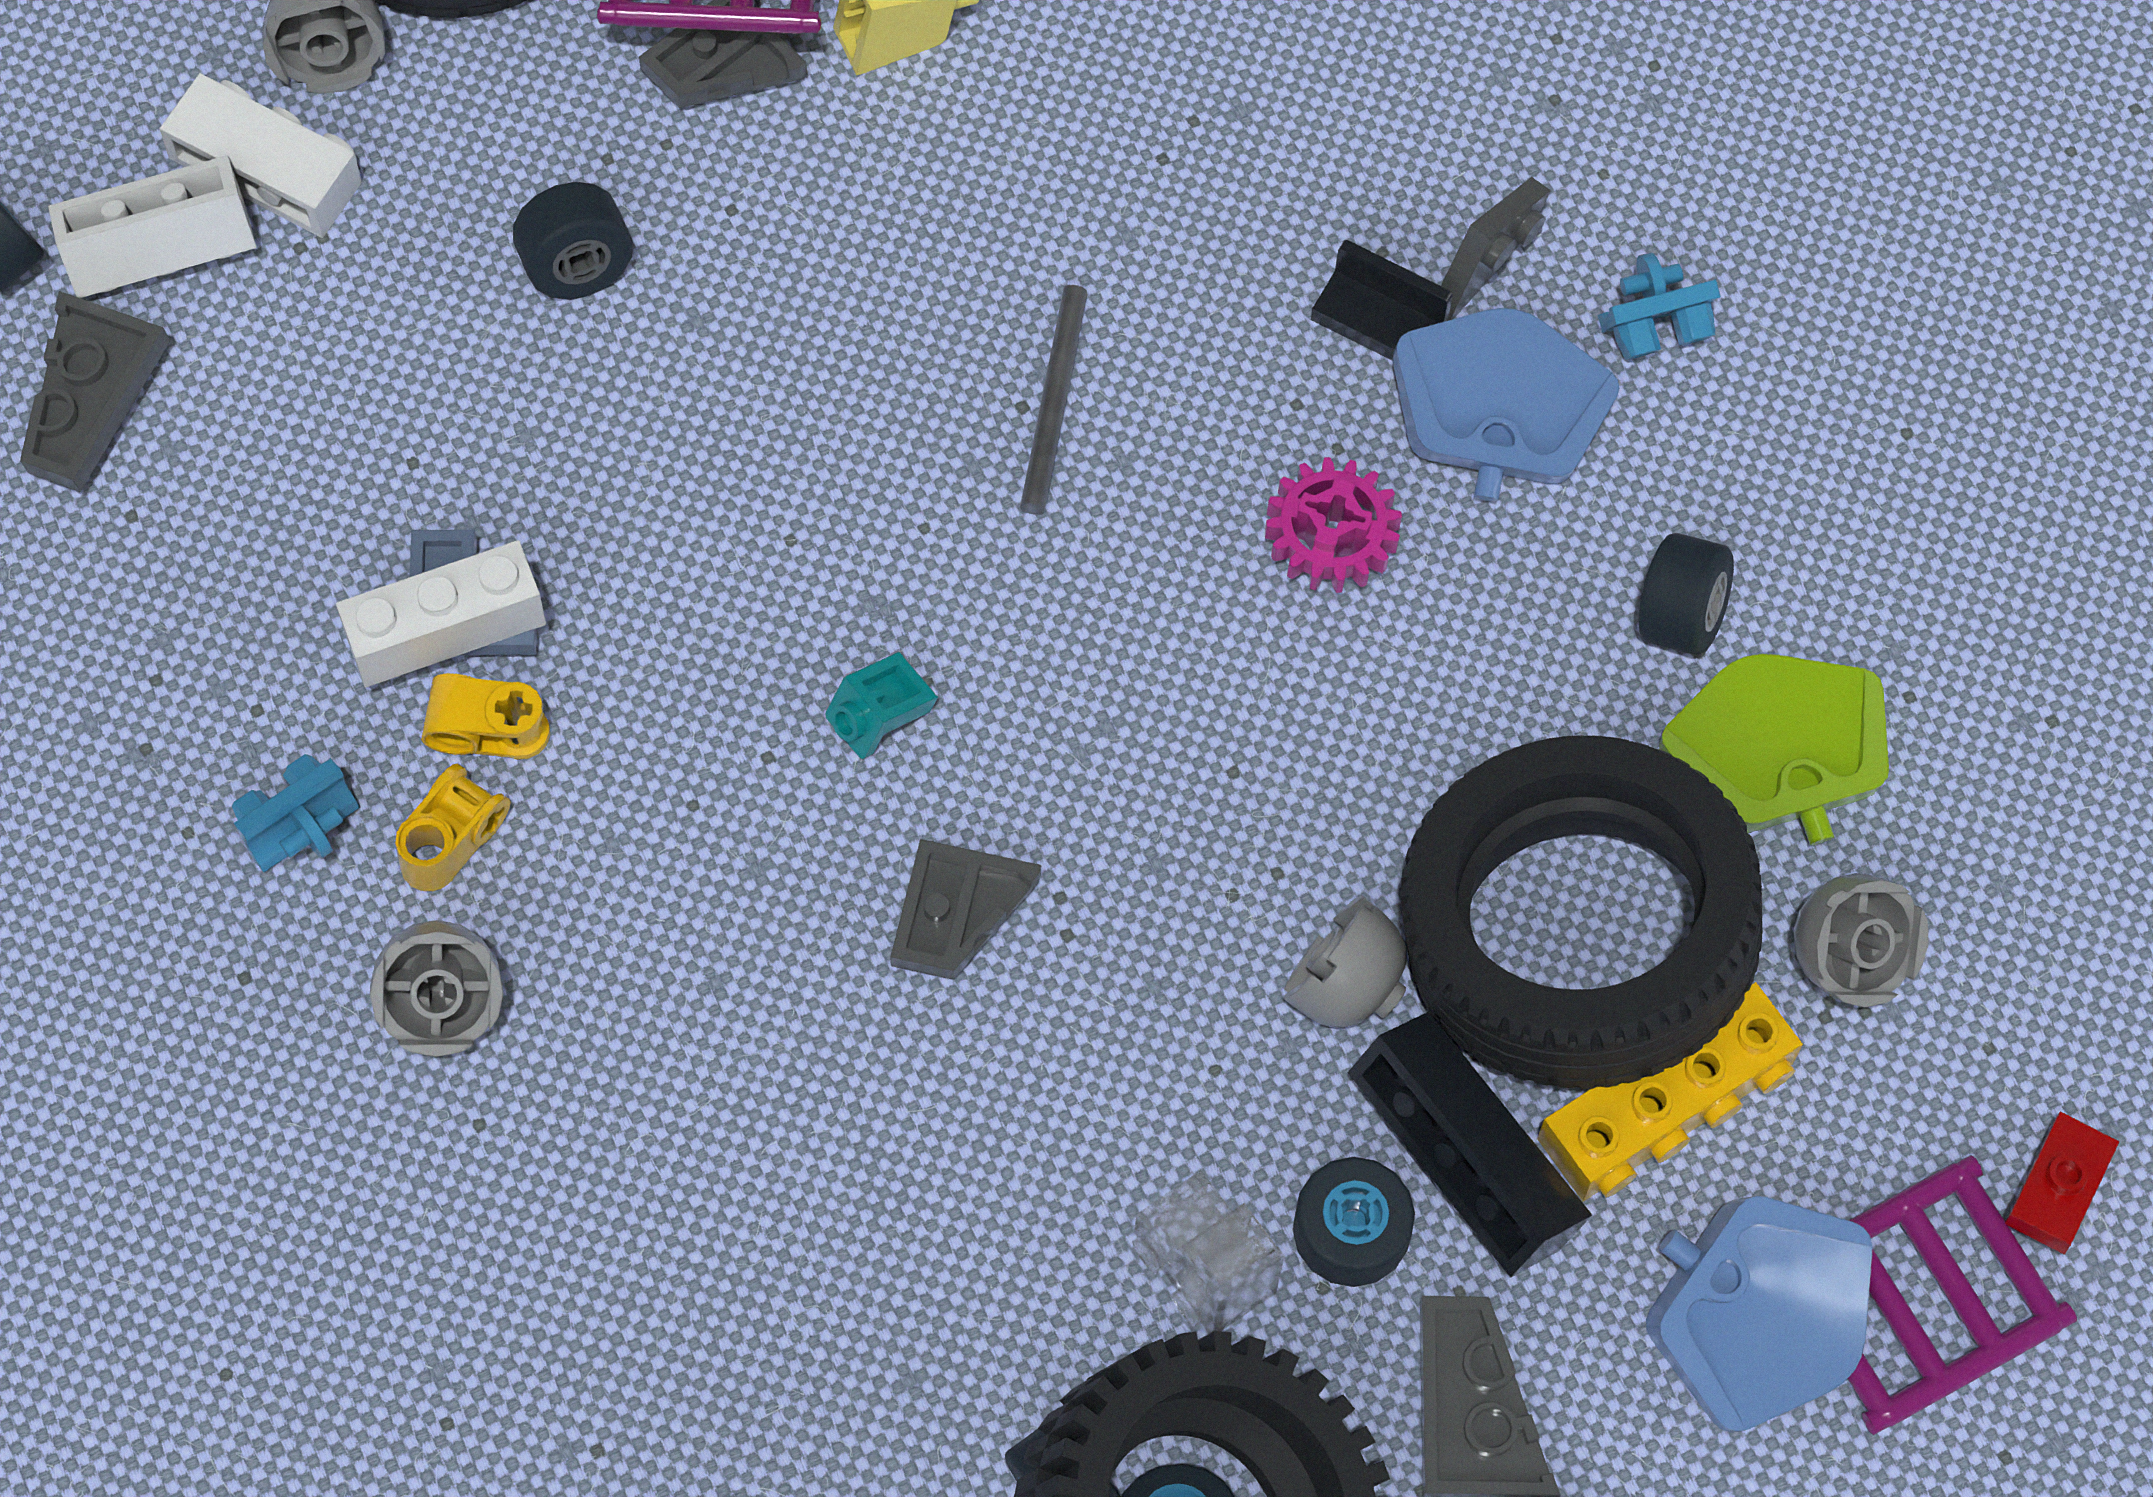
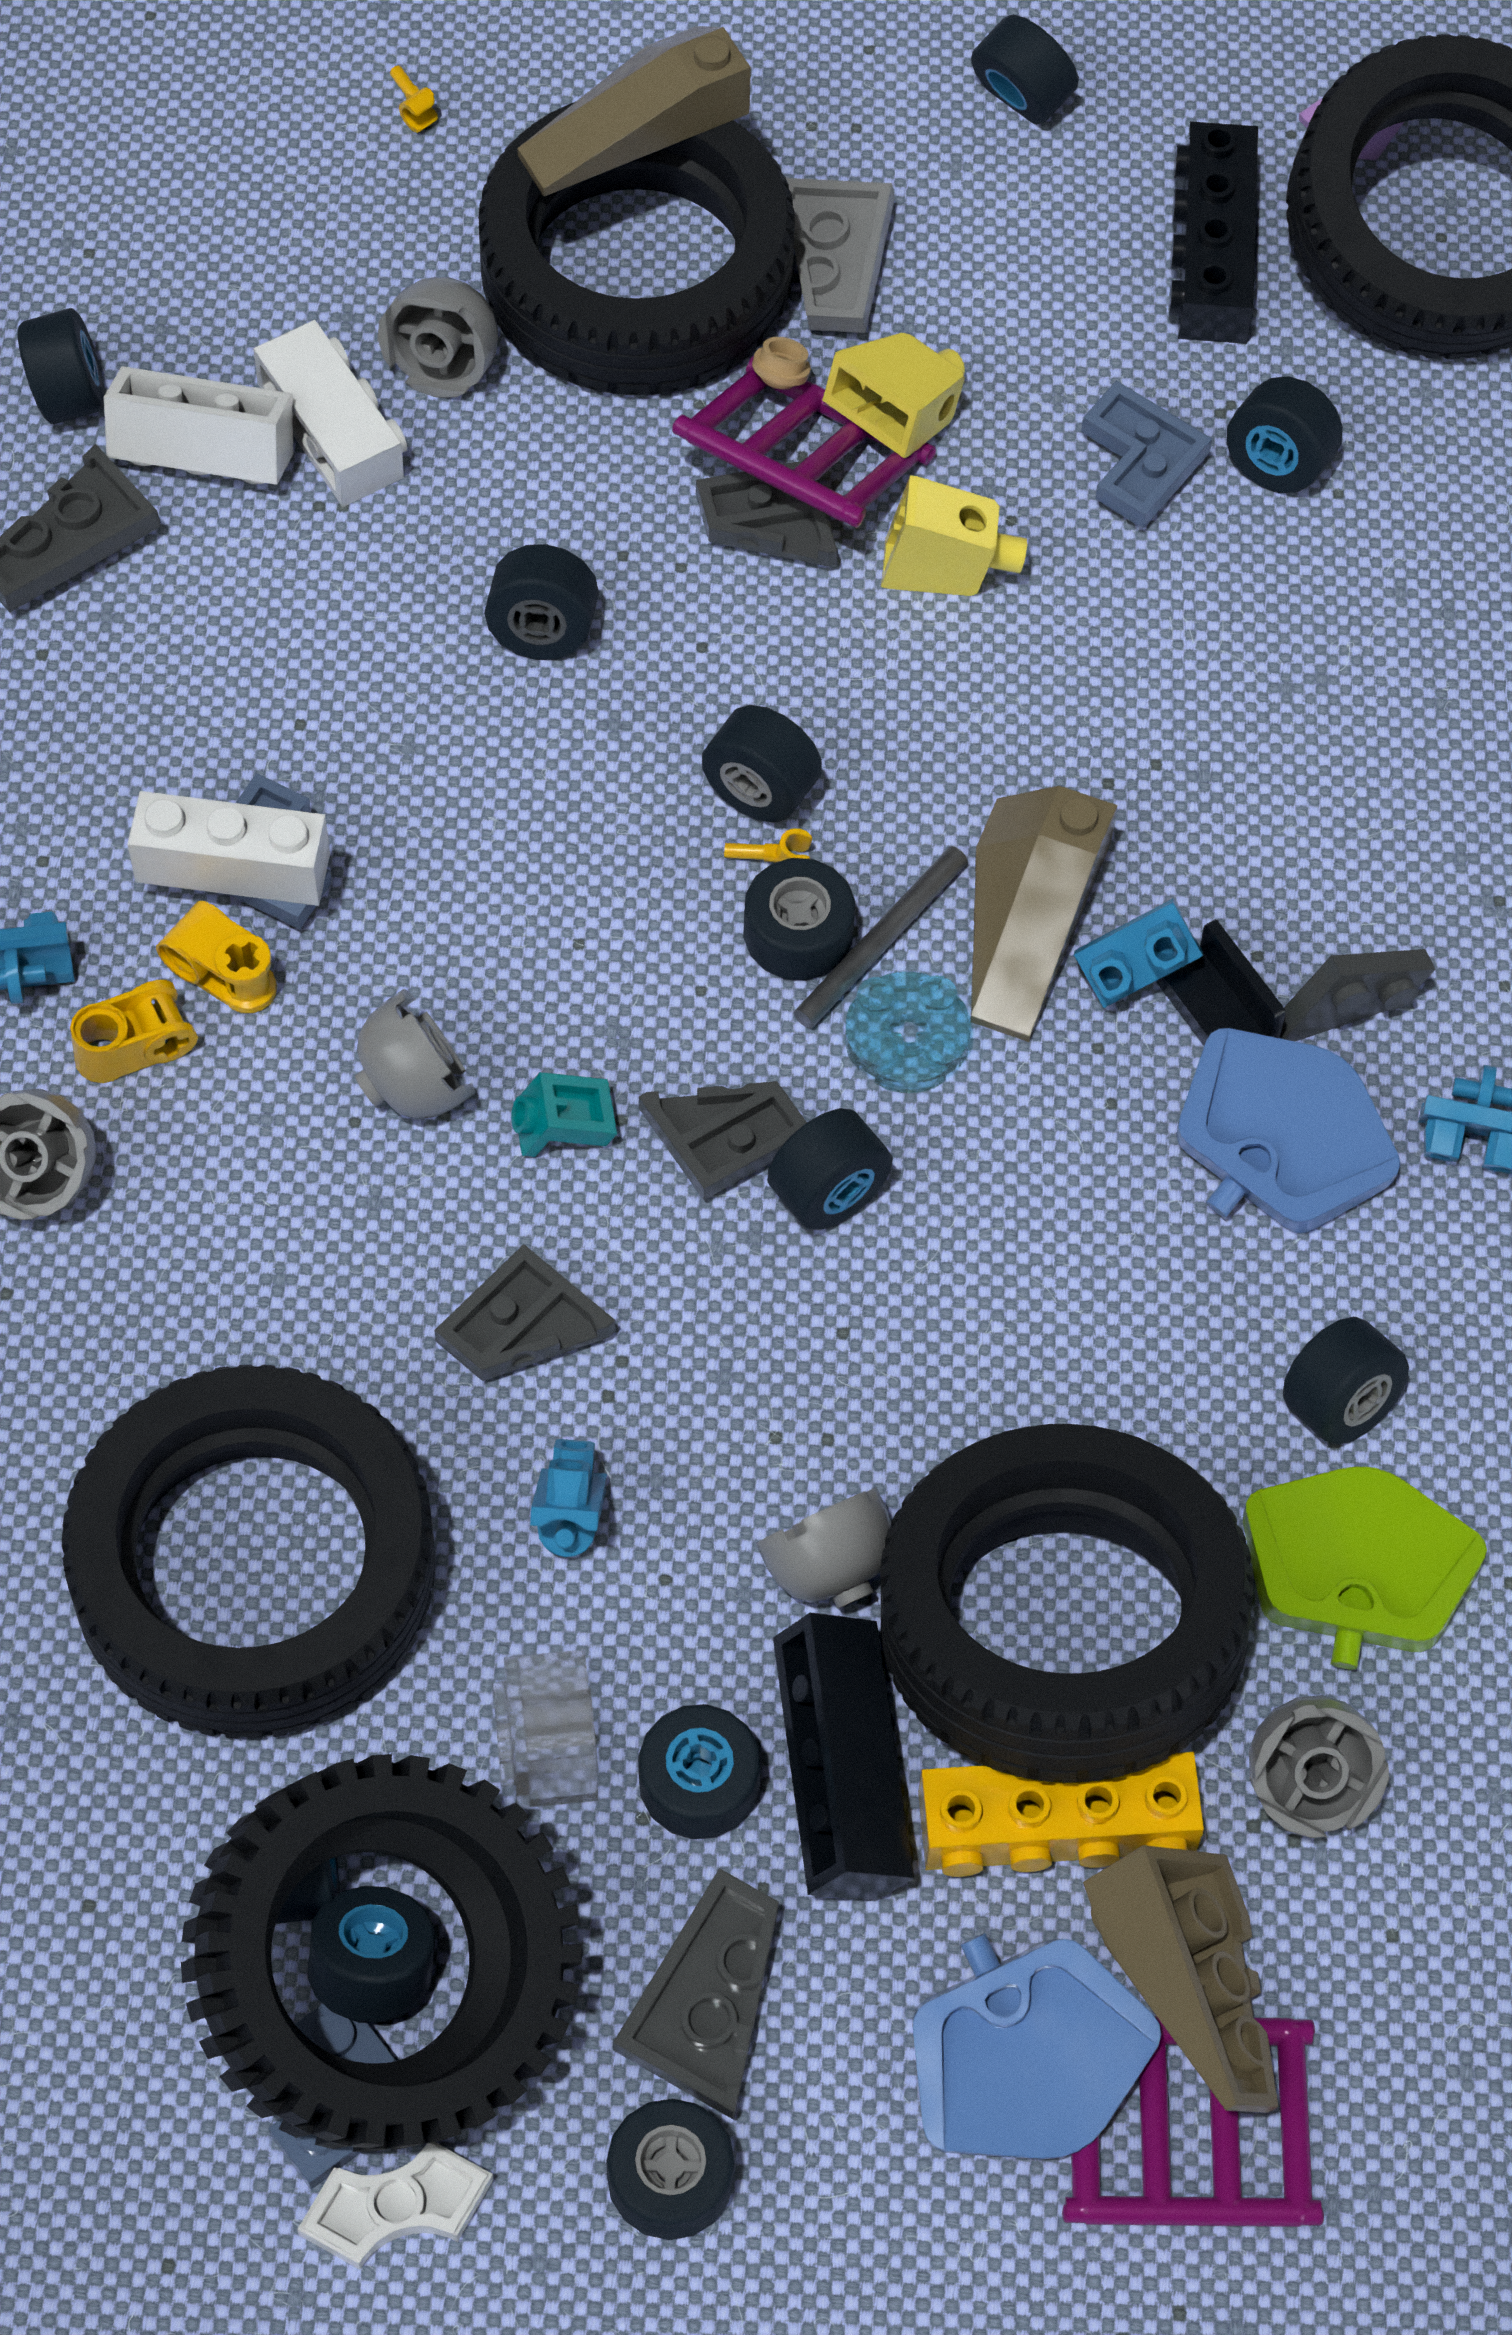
camera: 30 degrees right, 5 degrees down
(718, 727) = (409, 1062): none -> light grey cylinder
(852, 1098) = (230, 1418): none -> black tyre
(864, 294) = (761, 763): none -> black wheel
(919, 368) = (792, 839): none -> yellow hand
(978, 396) = (786, 900): none -> black wheel
(1028, 646) = (723, 1130): none -> dark grey wing
(1100, 1043) = (569, 1499): none -> dark azure hips
(1133, 440) = (907, 998): none -> clear light blue plate
(1147, 633) = (829, 1169): none -> black wheel
(1159, 284) = (1029, 896): none -> dark tan wedge
(1291, 303) = (1138, 953): none -> dark azure hips
(1326, 498) = (1060, 1167): dark pink gear -> none
(1823, 1142) = (1179, 1938): none -> dark tan wedge
(2062, 1183) = (1382, 2090): red plate -> none

